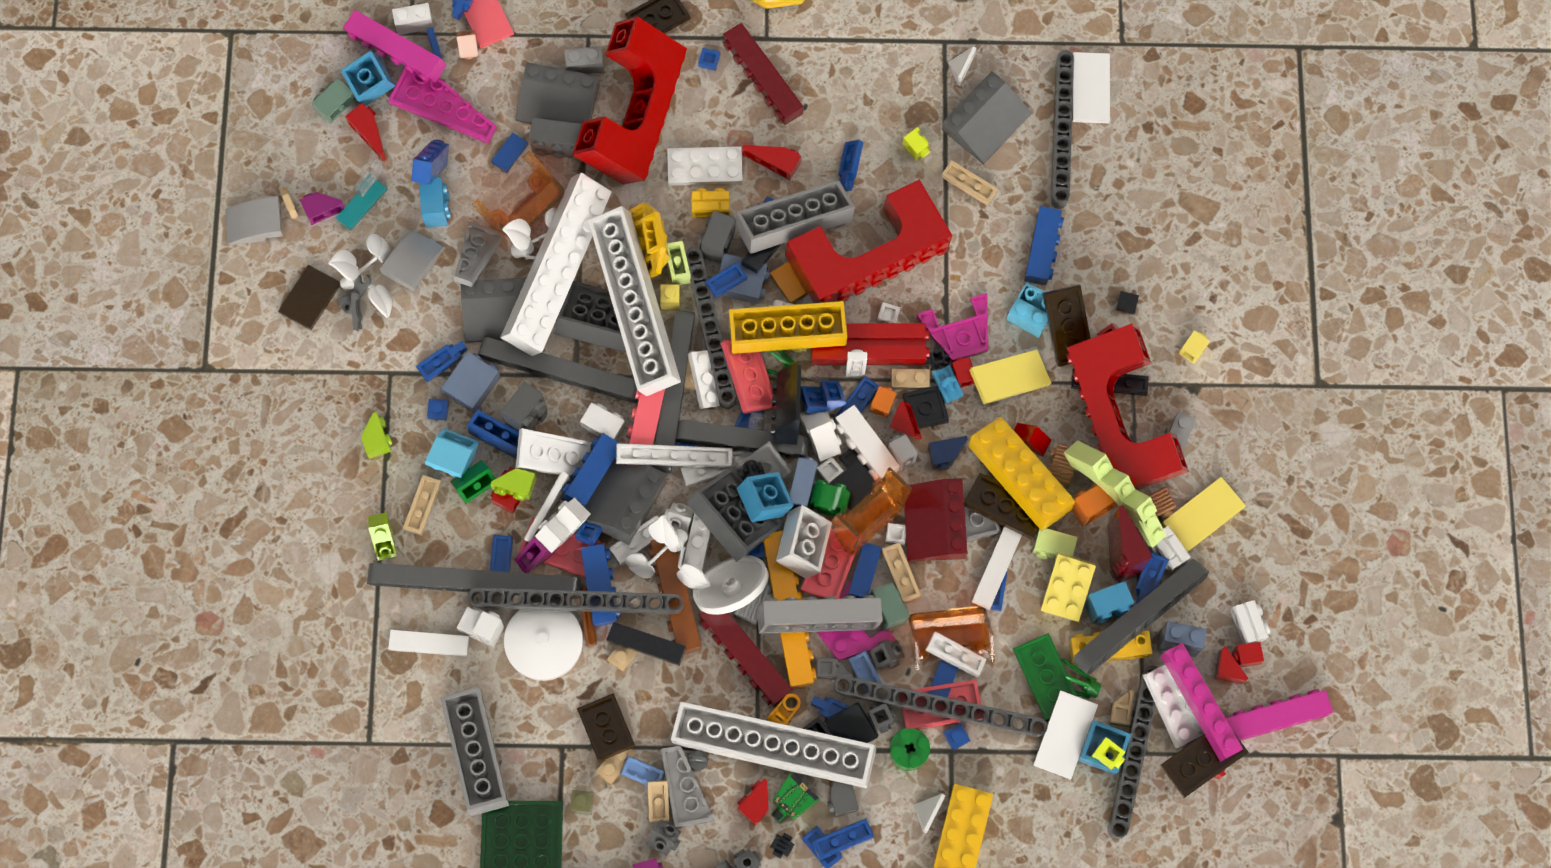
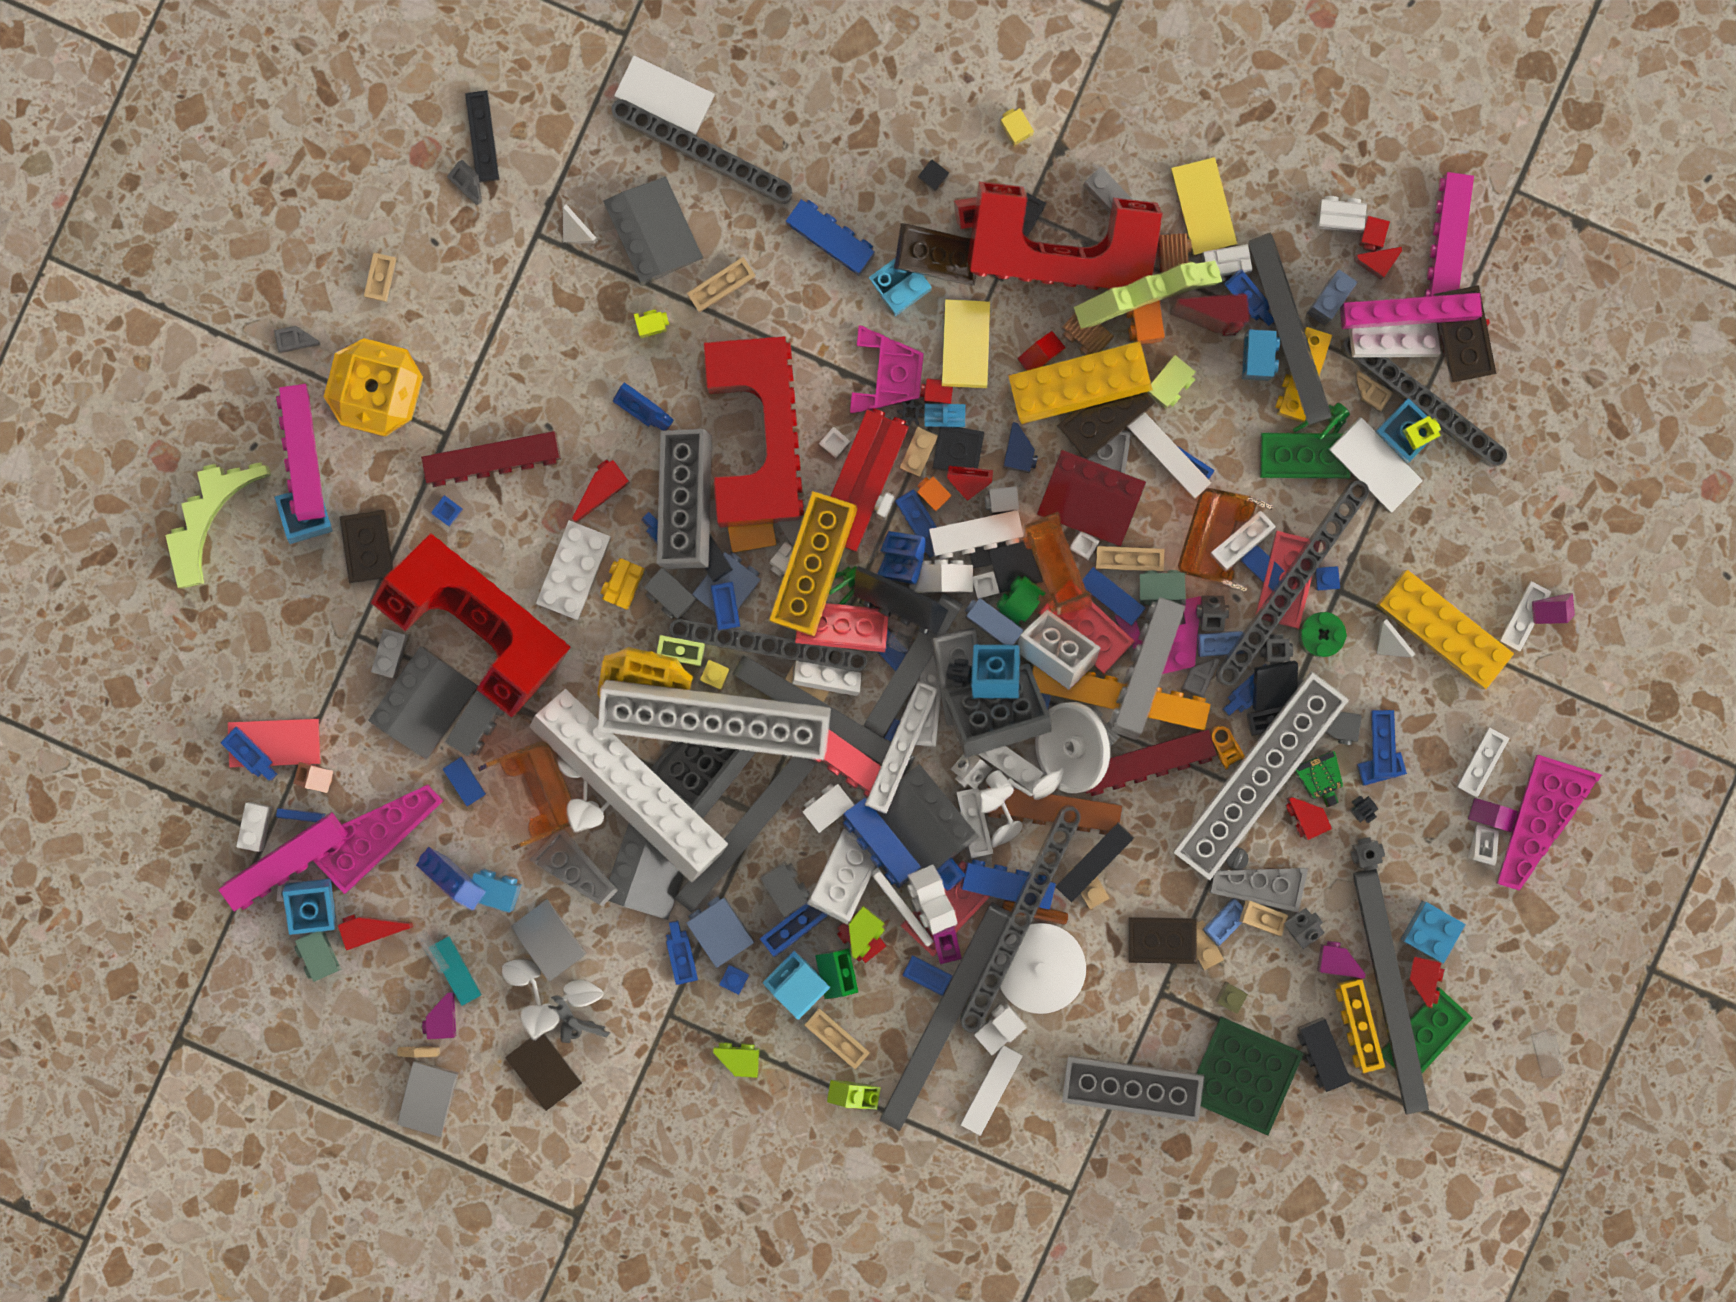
camera: 65 degrees left, 15 degrees up
(1068, 586) = (1224, 390): light yellow brick -> none

